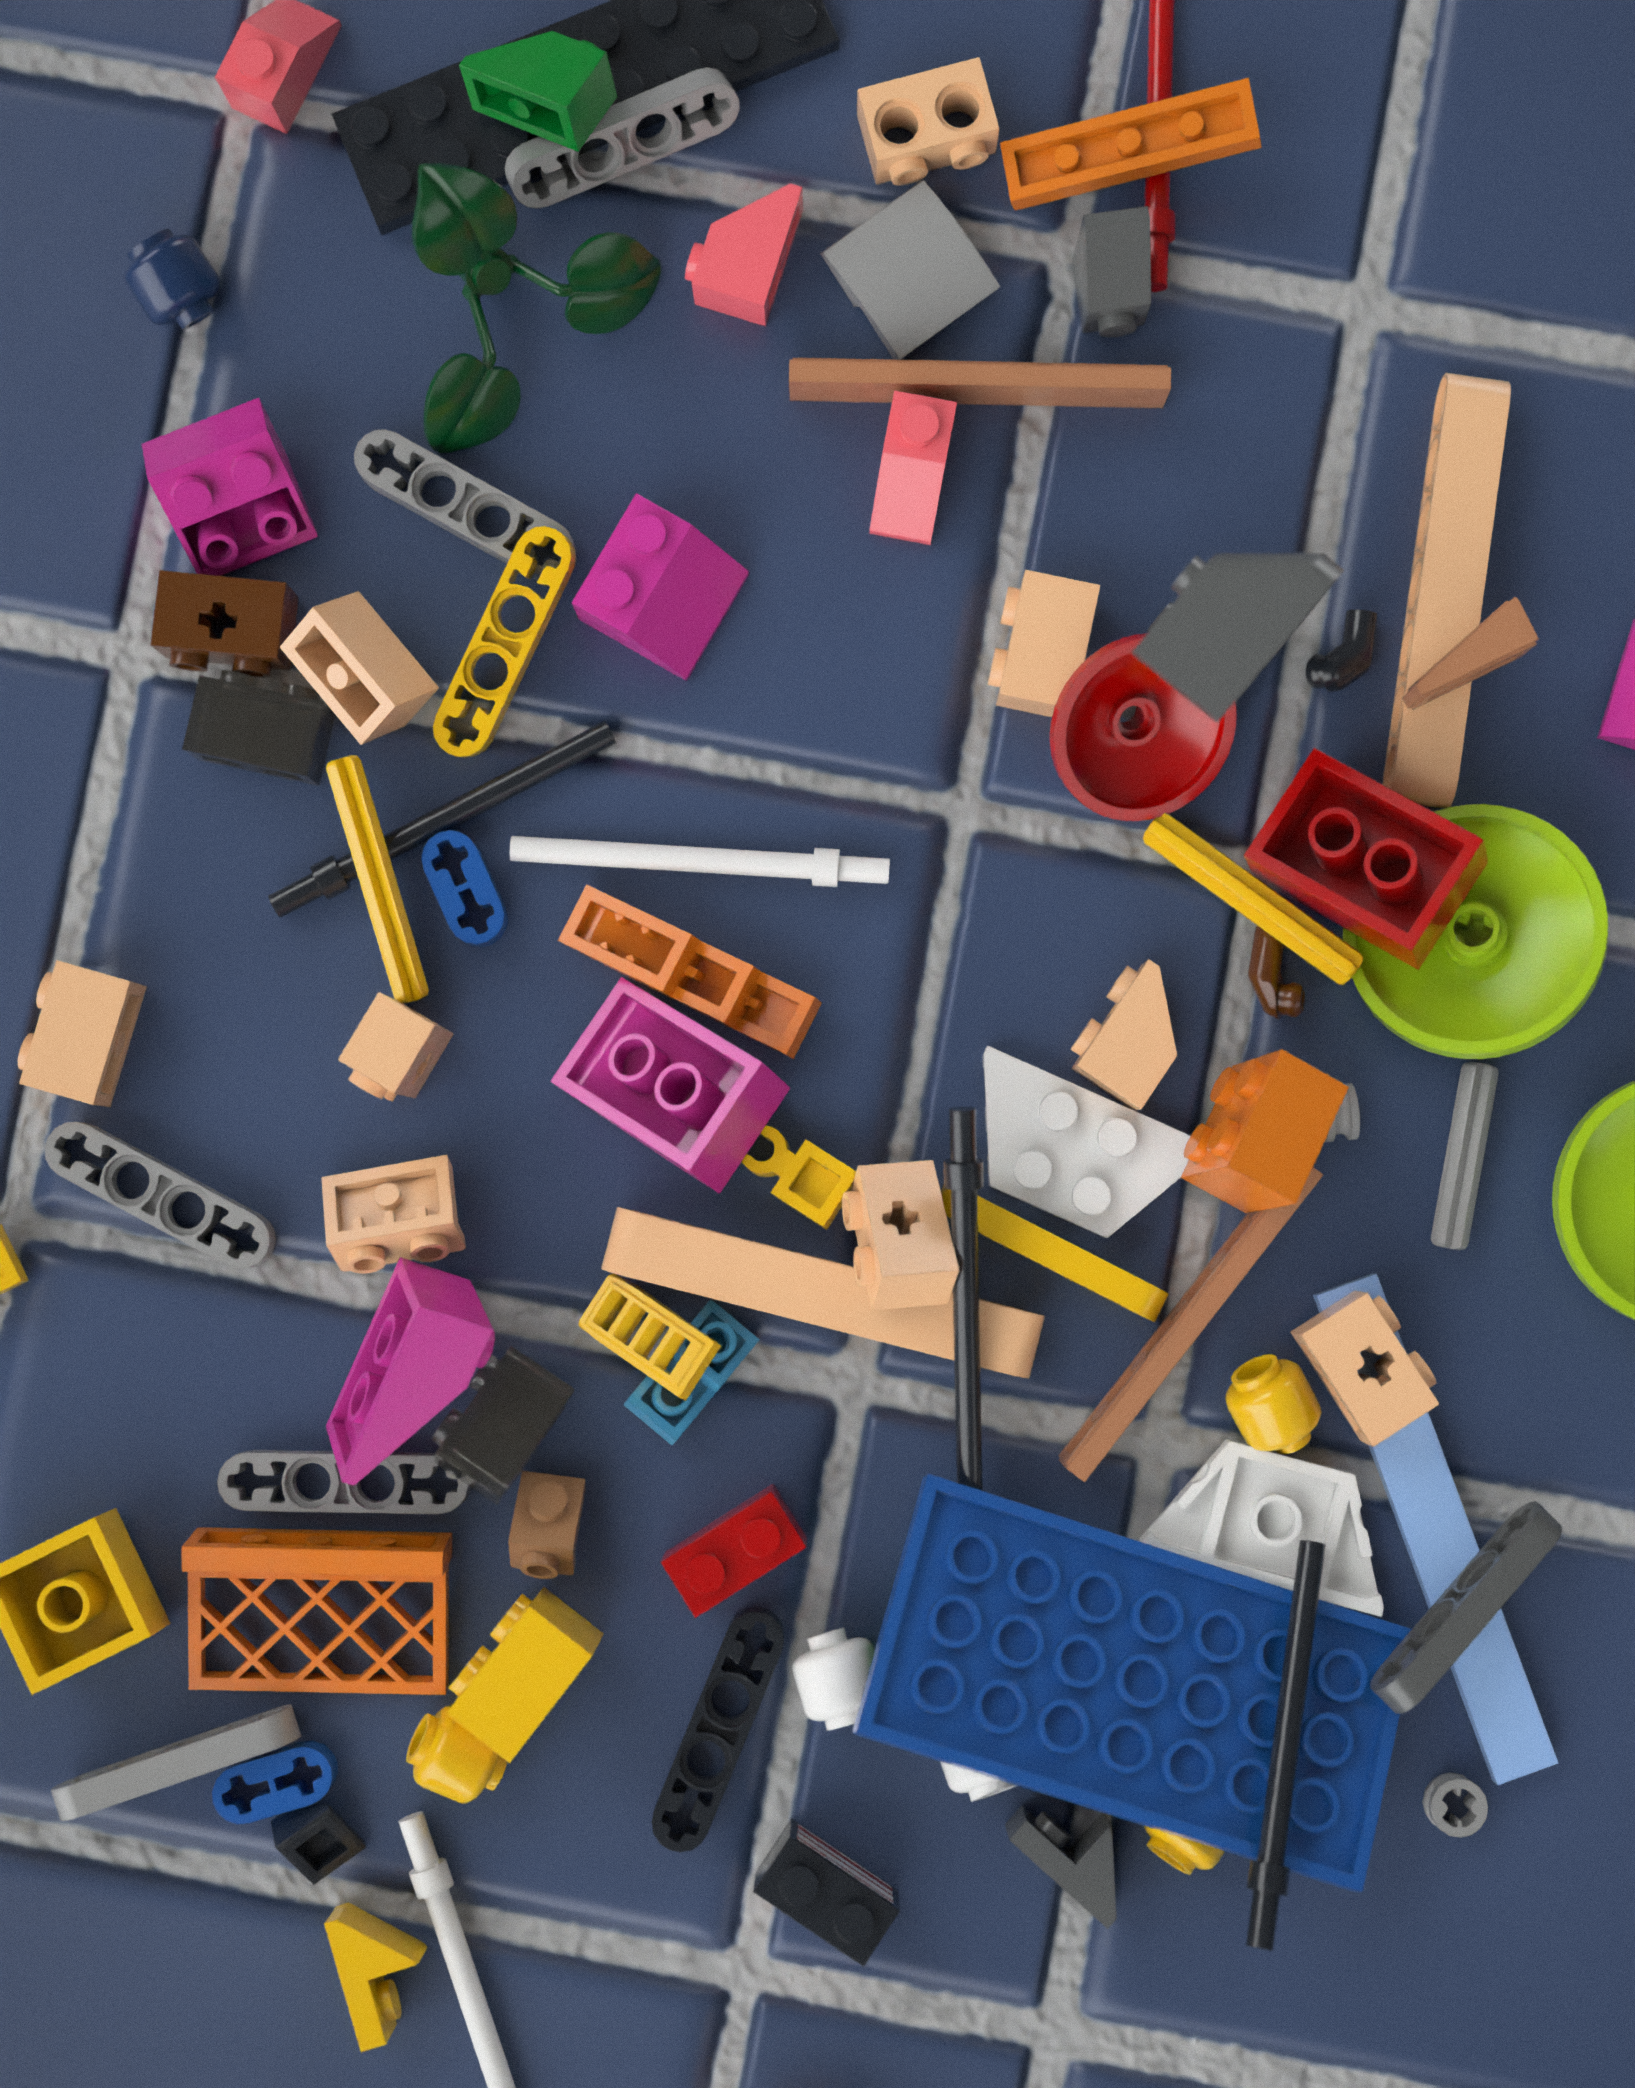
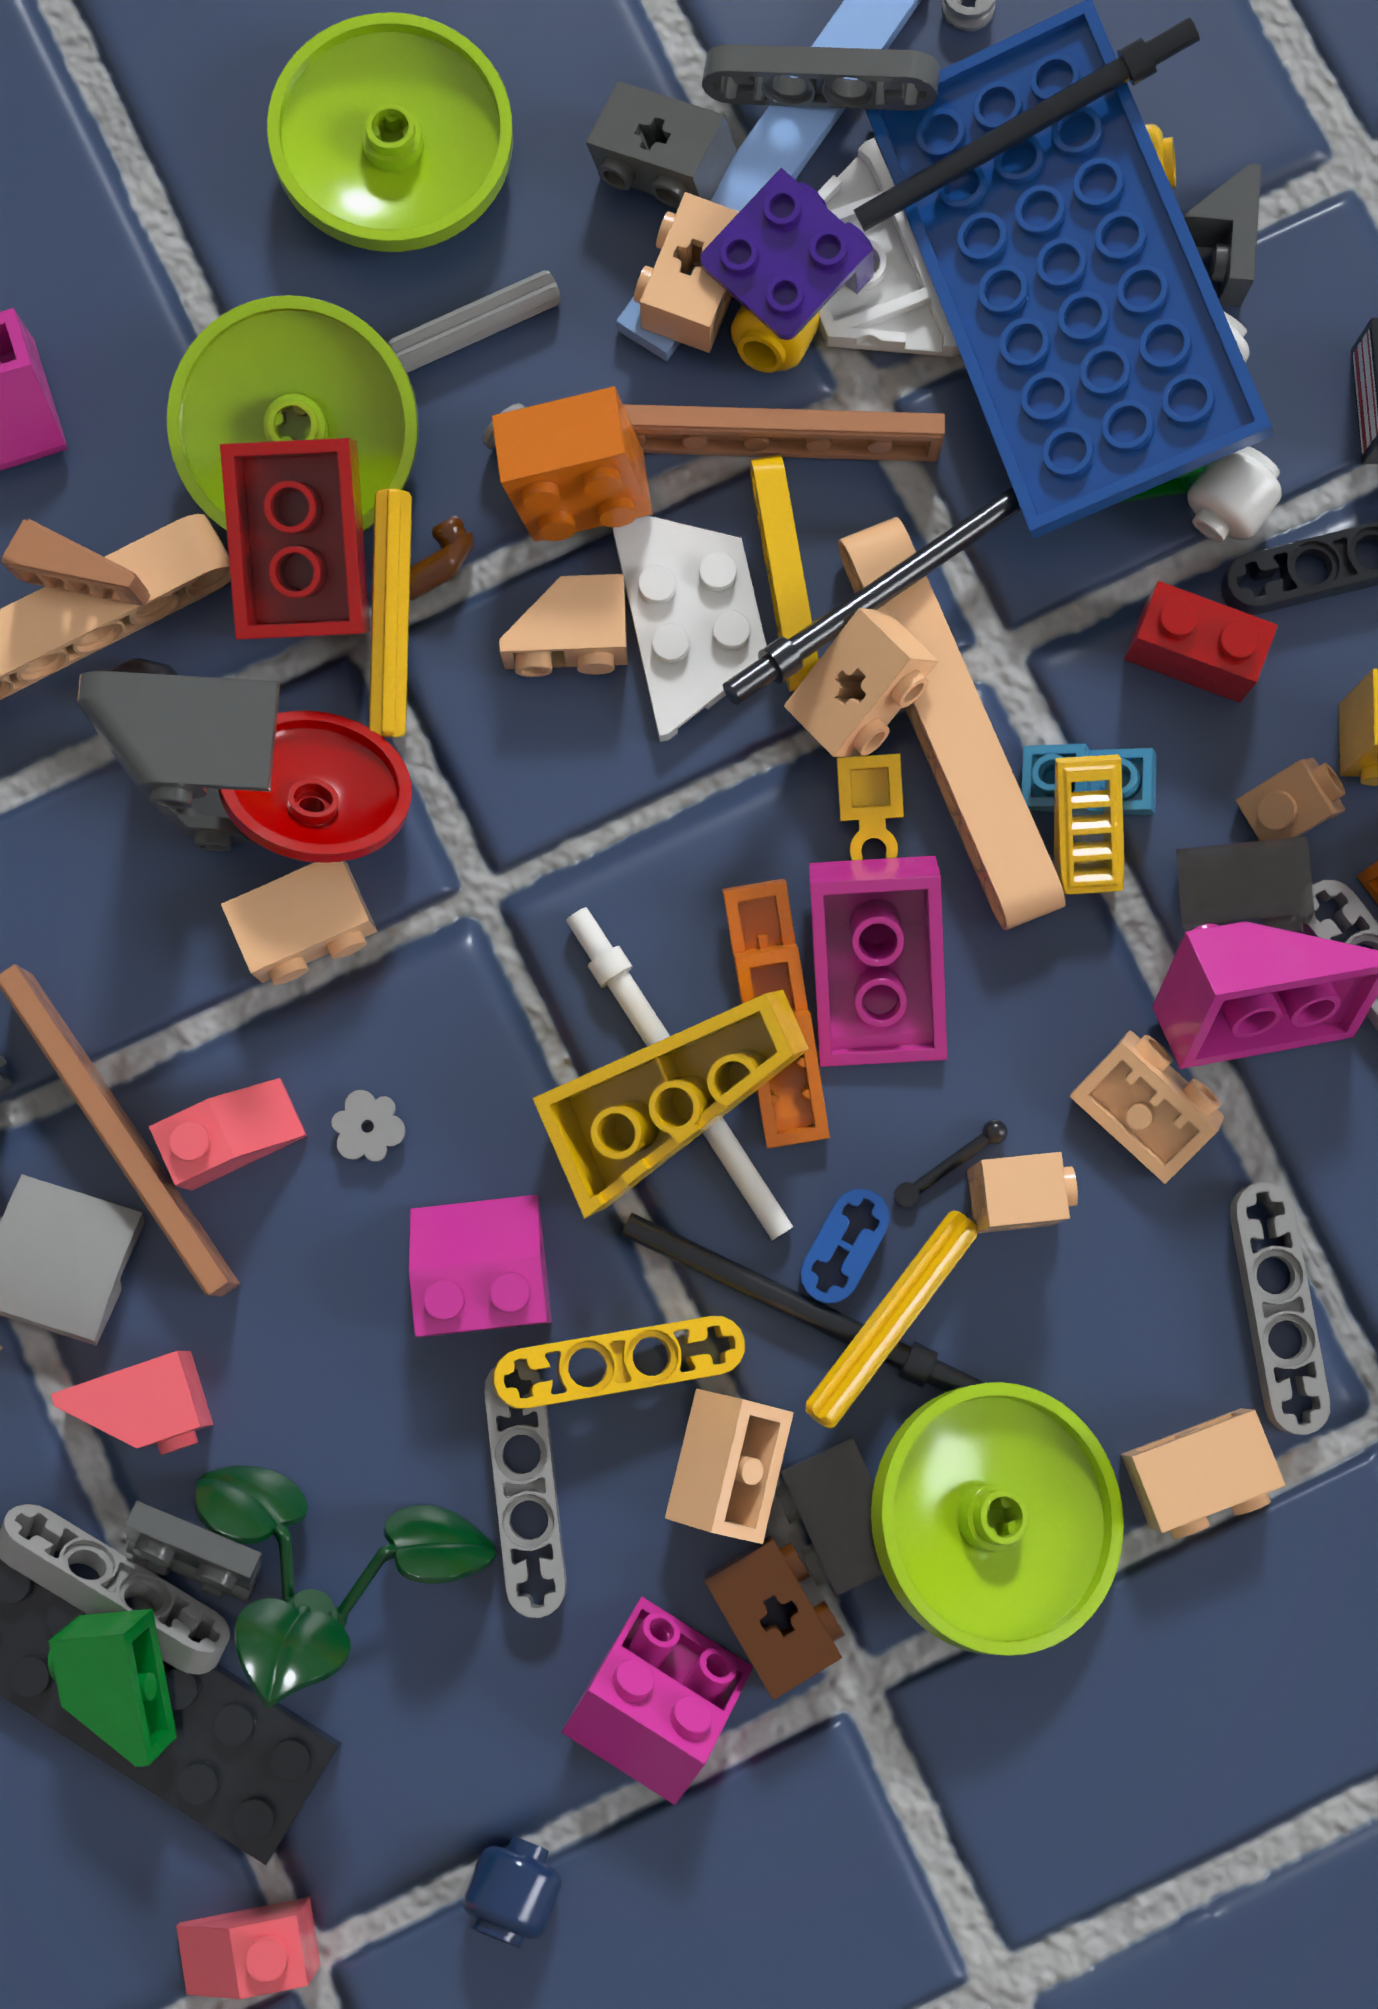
camera: 130 degrees left, 5 degrees down
(163, 843) = (997, 1519): none -> lime dish
(469, 971) = (908, 1193): none -> black hinge
(622, 196) = (192, 1552): none -> dark grey plate
(682, 817) = (652, 1103): none -> yellow wedge
(834, 567) = (360, 1109): none -> light grey plant
(1316, 1447) = (788, 255): none -> dark purple bracket
(1537, 1421) = (660, 145): none -> dark grey brick

